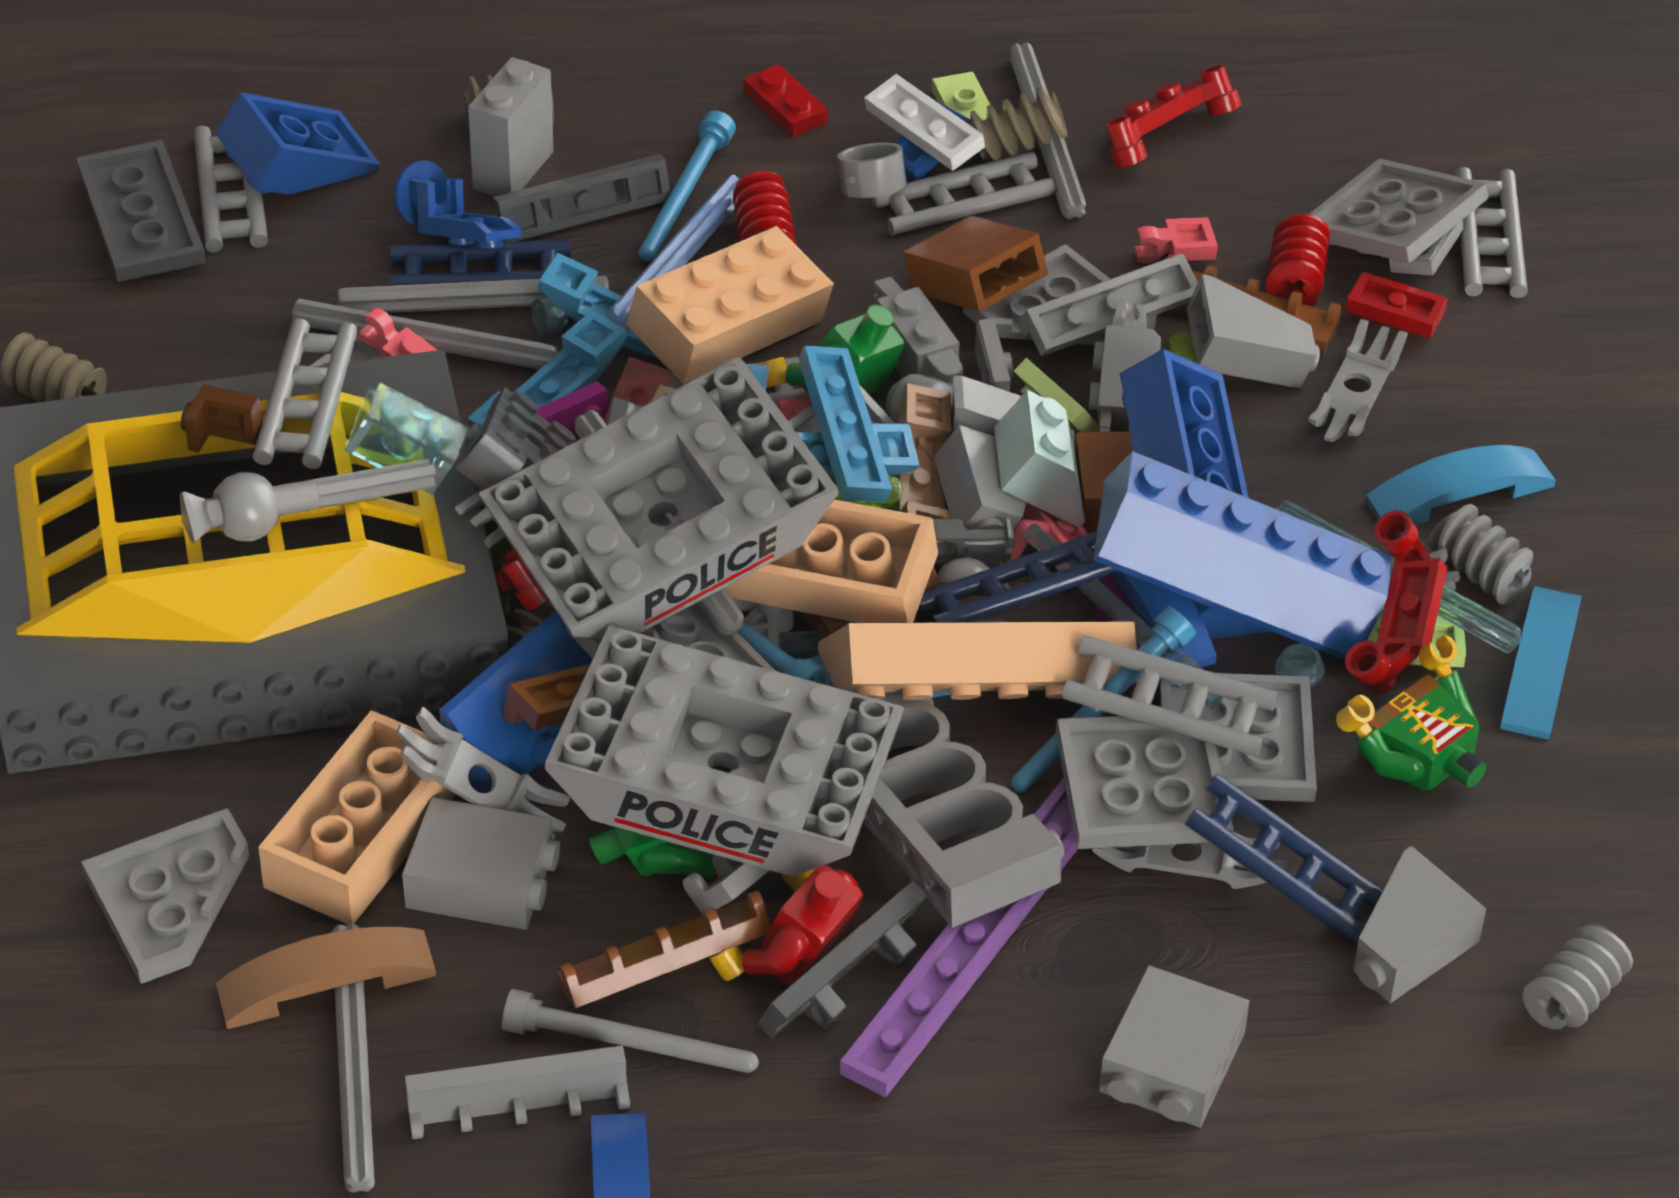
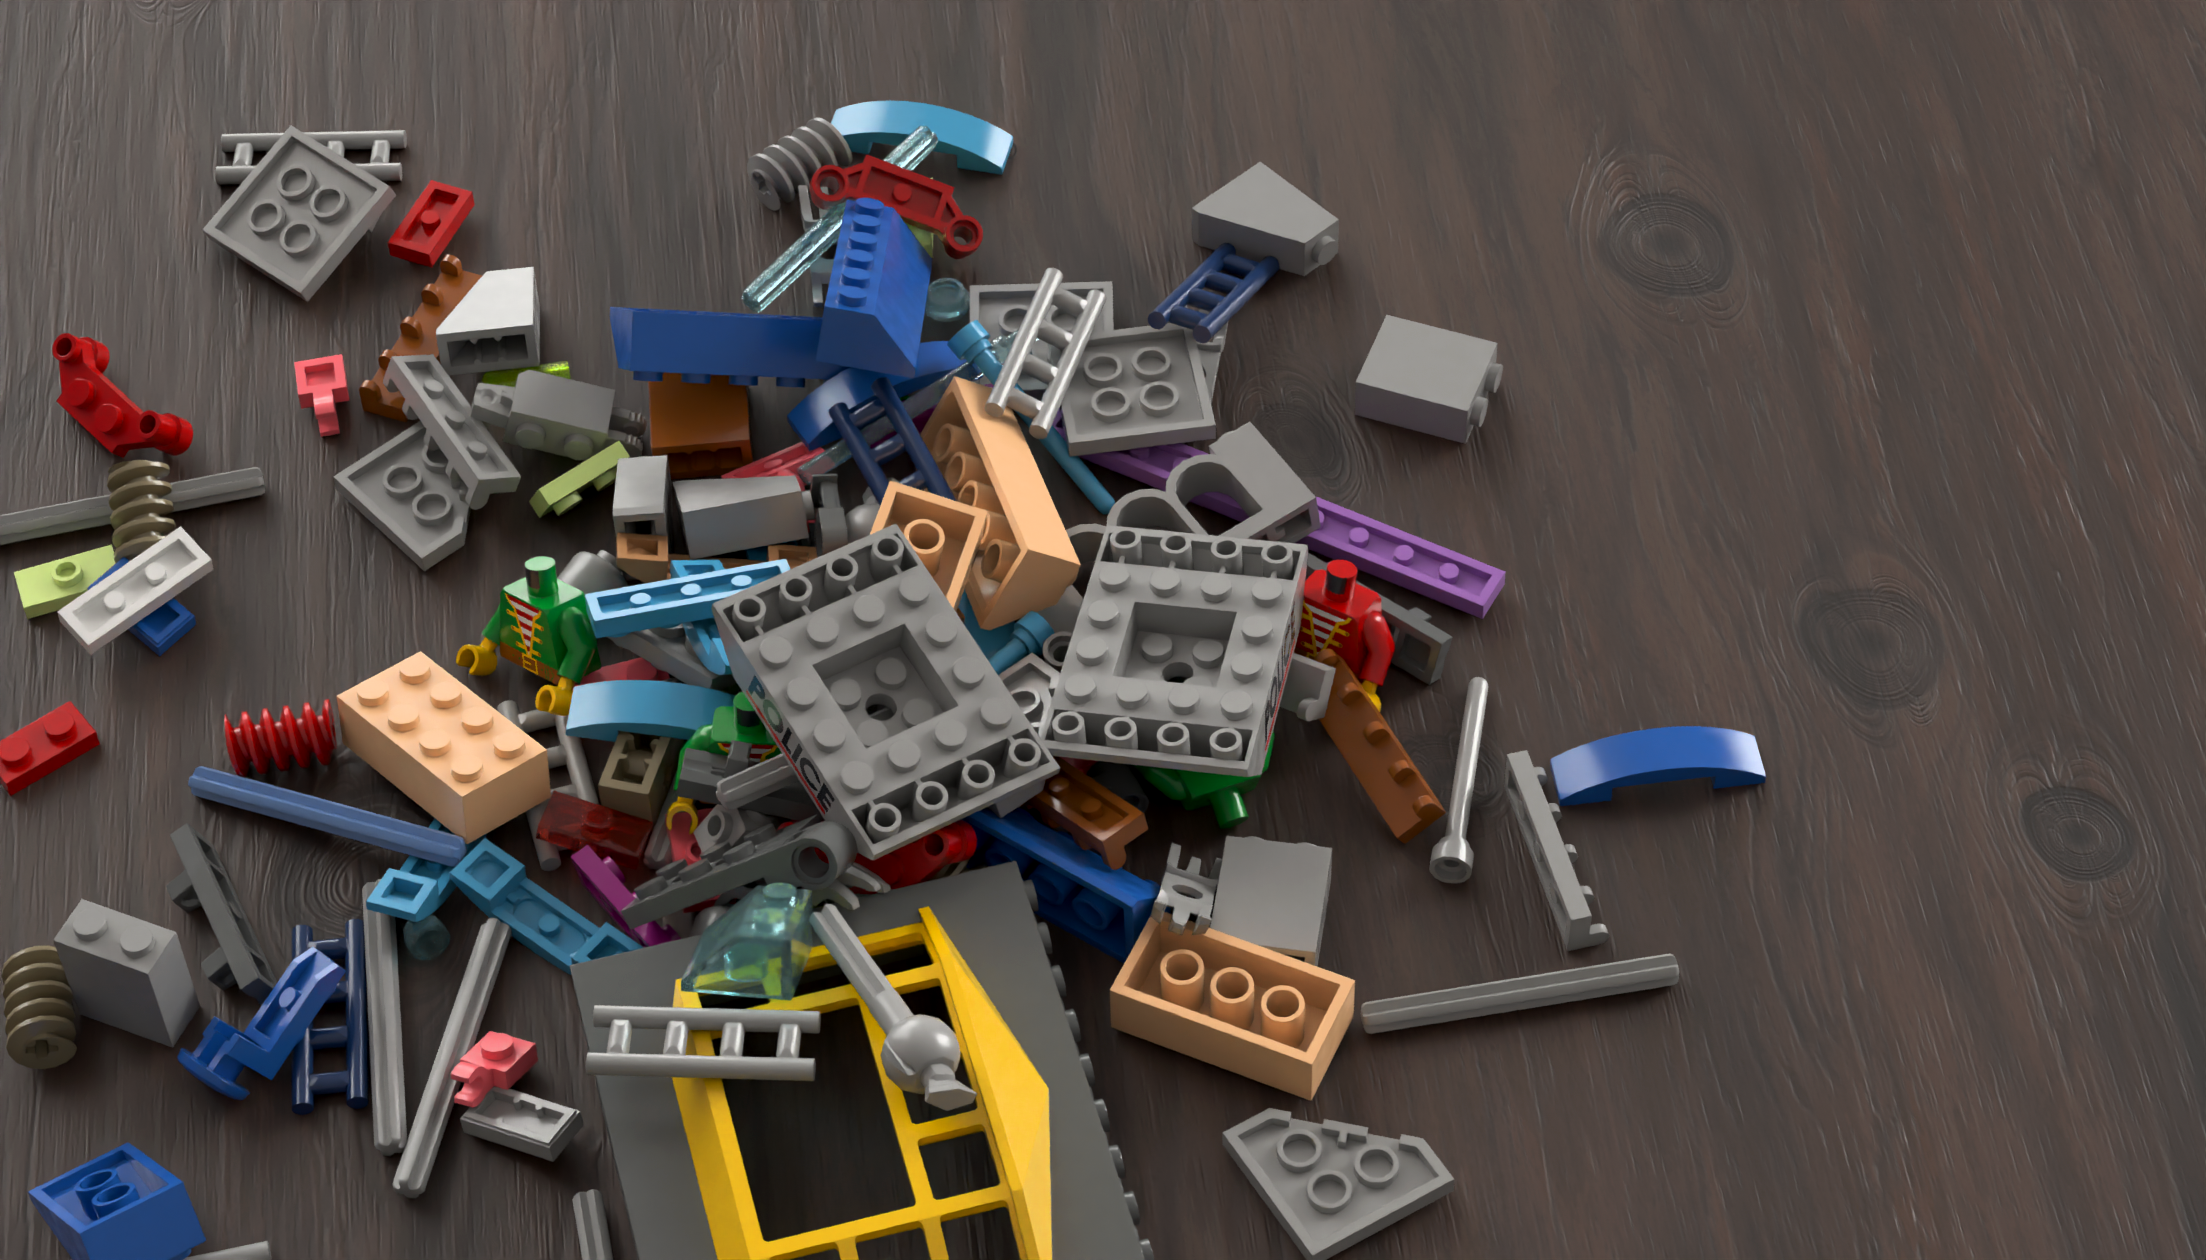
camera: 90 degrees left, 5 degrees up
(222, 415) = (757, 1108): reddish brown bracket -> none
(323, 964) = (1431, 1029): medium nougat slope -> none
(713, 134) = (104, 804): dark azure piece -> none
(871, 170) = (181, 632): light grey piece -> none
(928, 341) = (469, 594): light grey hinge -> none
(976, 176) = (248, 589): light grey bar -> none
(976, 263) = (376, 542): dark orange brick -> none
(993, 364) = (526, 533): light grey plate -> none
(1039, 457) = (713, 454): light aqua slope -> none
(1298, 257) = (368, 293): red piece -> none
(1360, 366) = (522, 246): light grey piece -> none
(1423, 730) = (1029, 208): torso -> none
(1460, 477) = (696, 189): dark azure slope -> none
(1577, 977) = (1313, 117): light grey piece -> none

